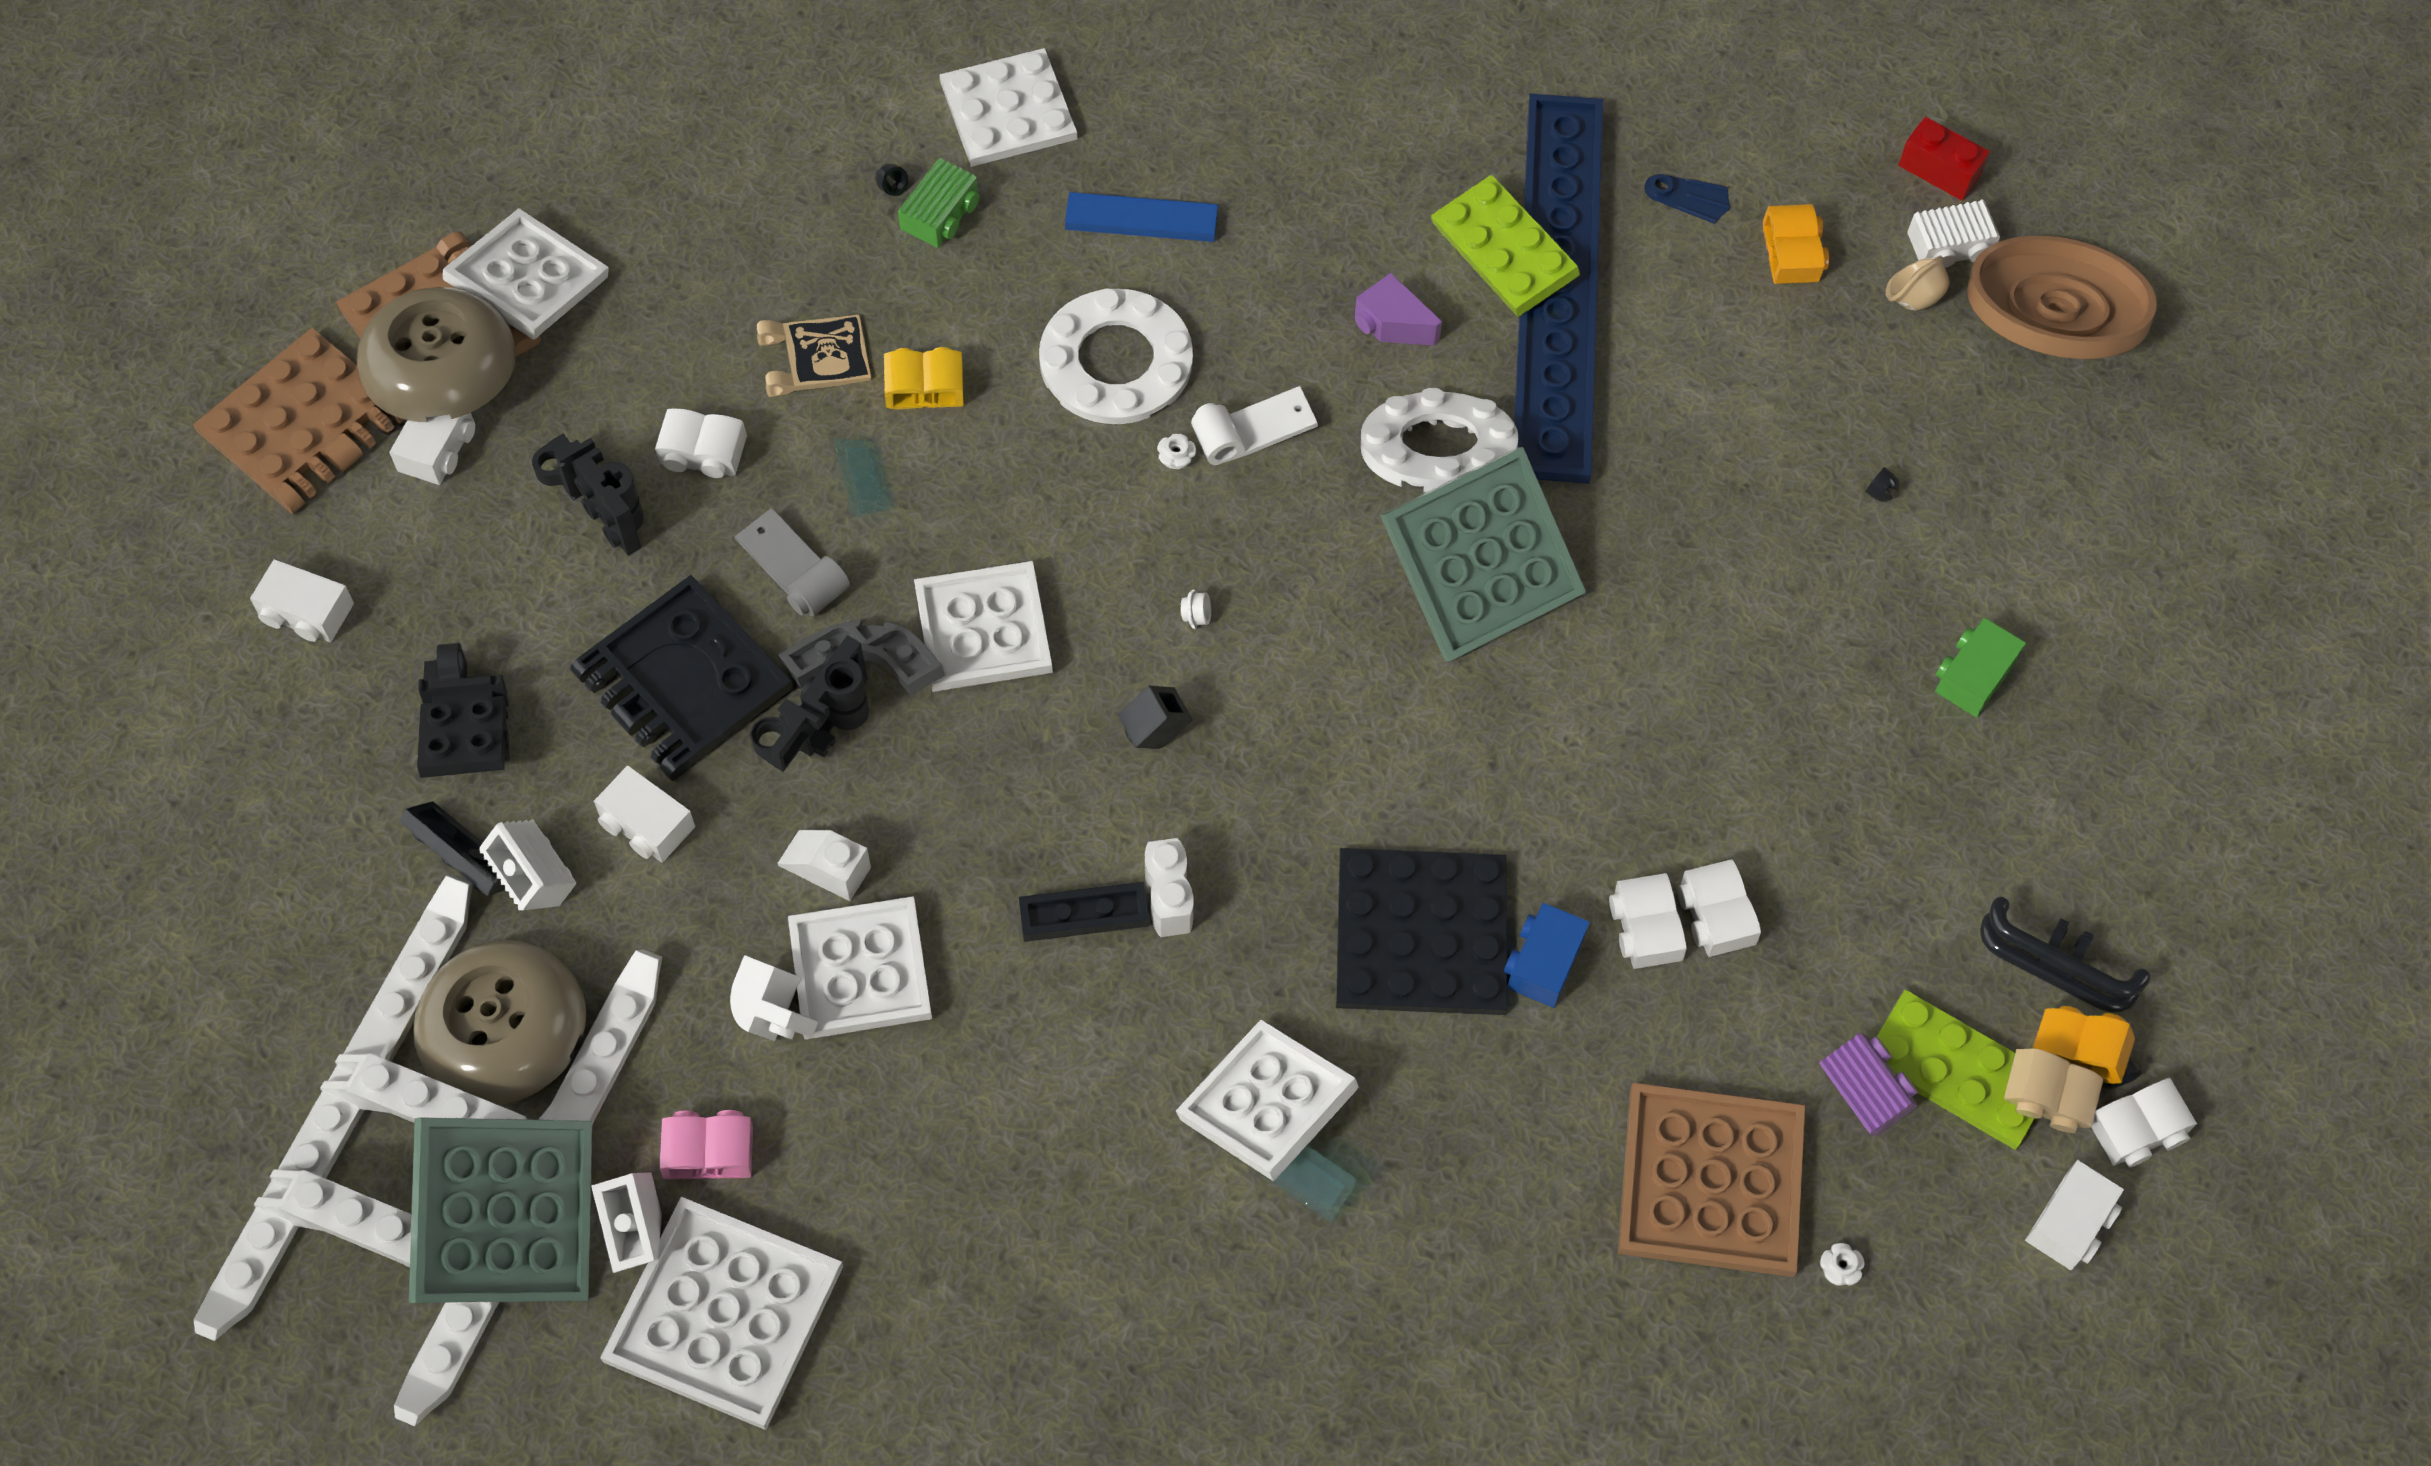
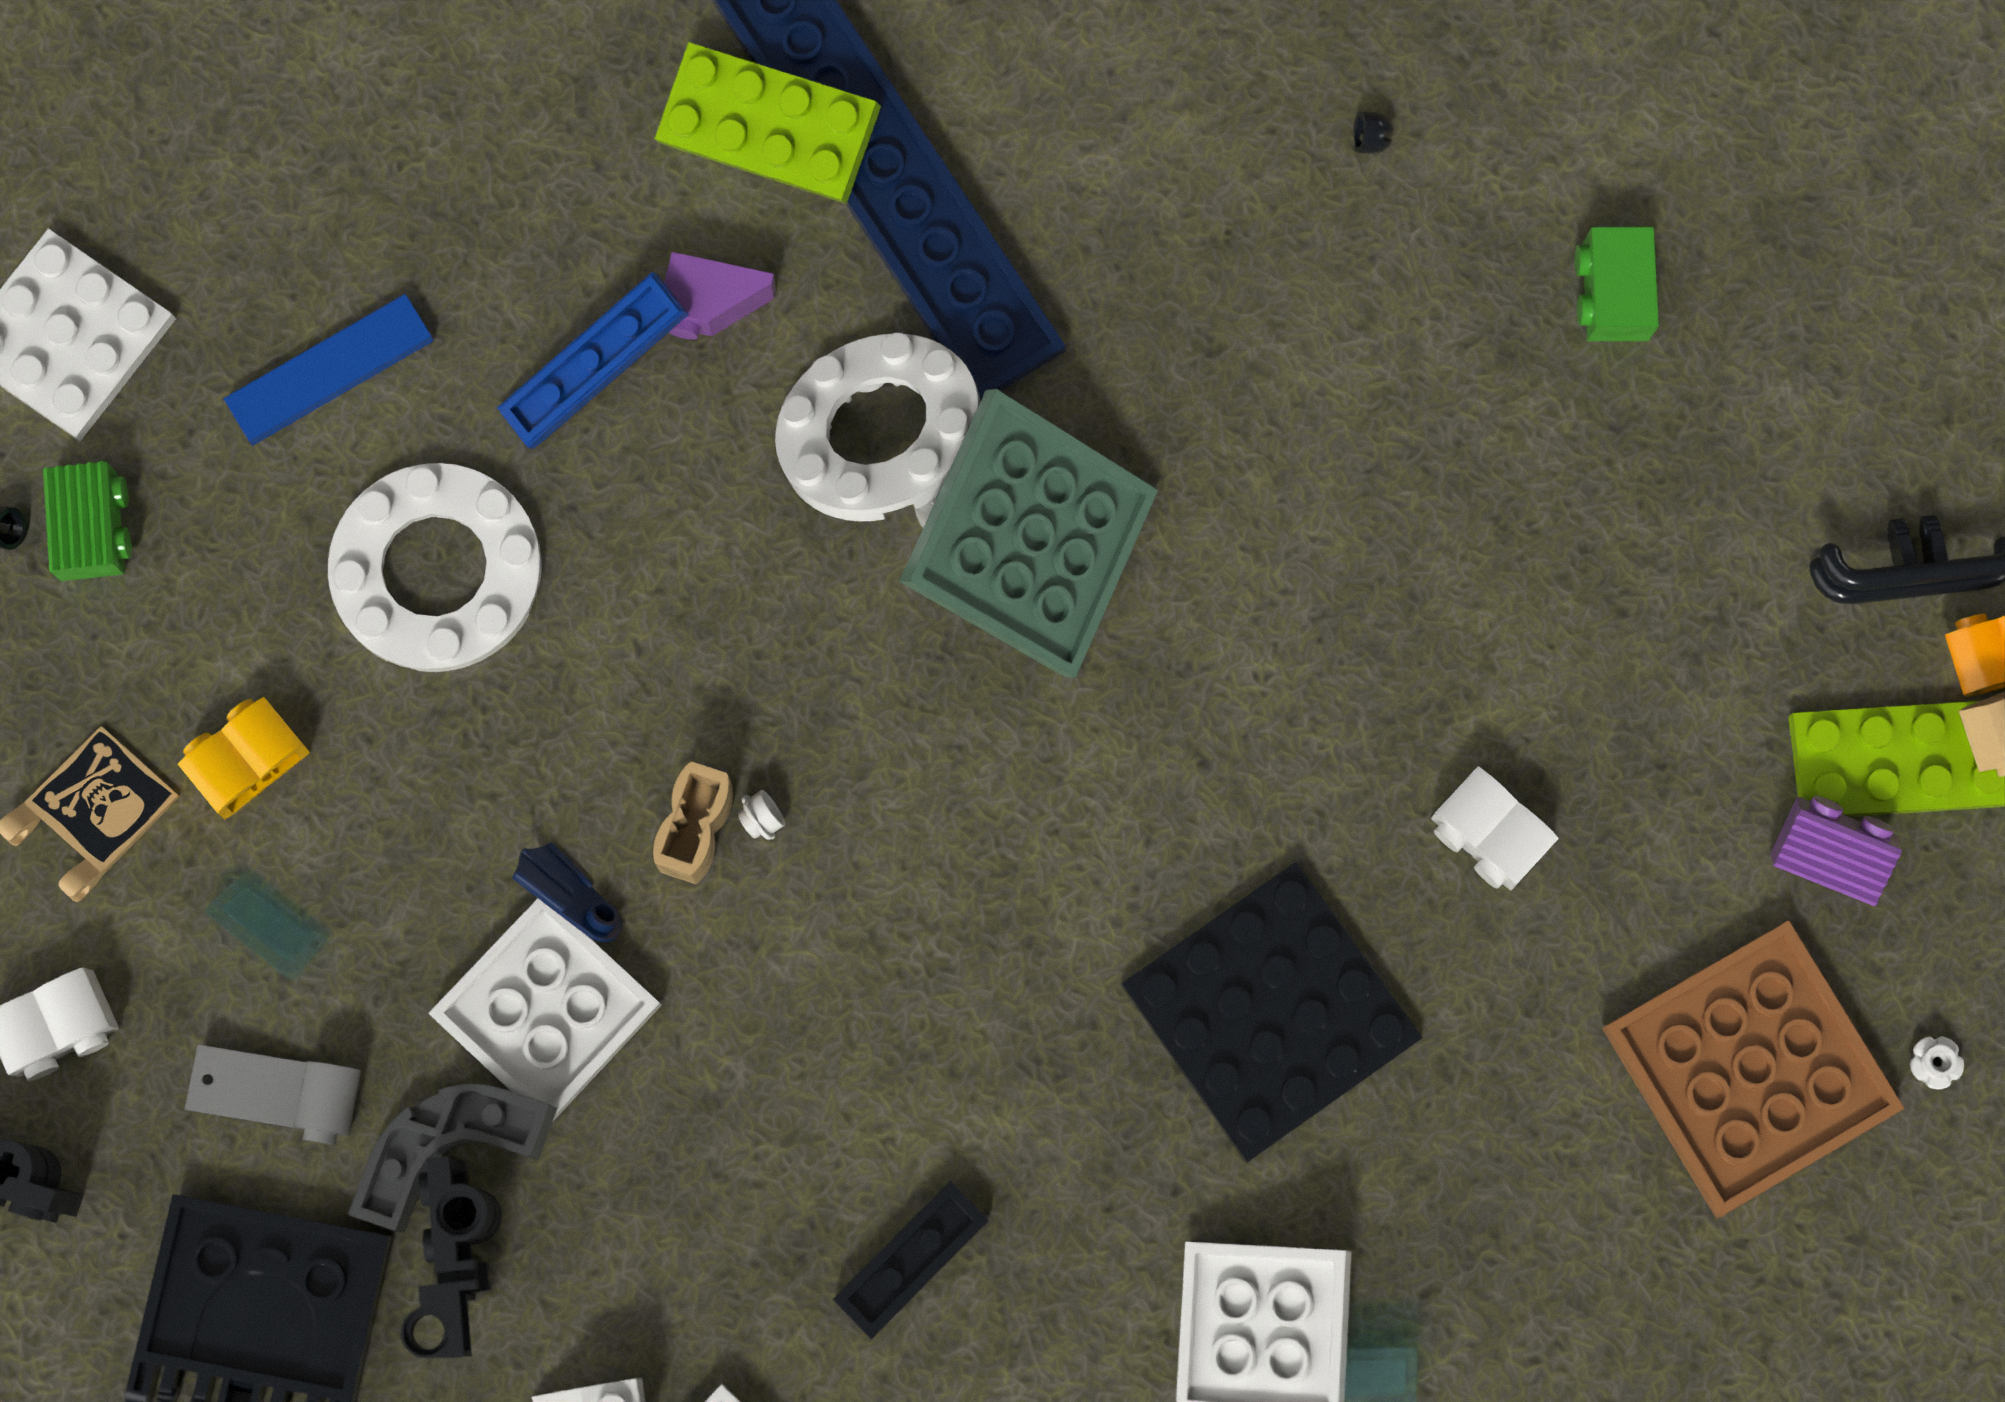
camera: 40 degrees left, 15 degrees up
(1048, 572) = (567, 891): none -> dark blue piece
(1154, 717) = (820, 984): black brick -> none
(1157, 578) = (700, 808): none -> tan brick
(1169, 887) = (970, 1157): white brick -> none
(1173, 459) = (601, 649): white plate -> none
(1252, 428) = (654, 548): white door -> none
(1297, 302) = (593, 360): none -> blue tile
(1547, 954) = (1419, 946): blue brick -> none
(1719, 907) = (1552, 761): white brick -> none

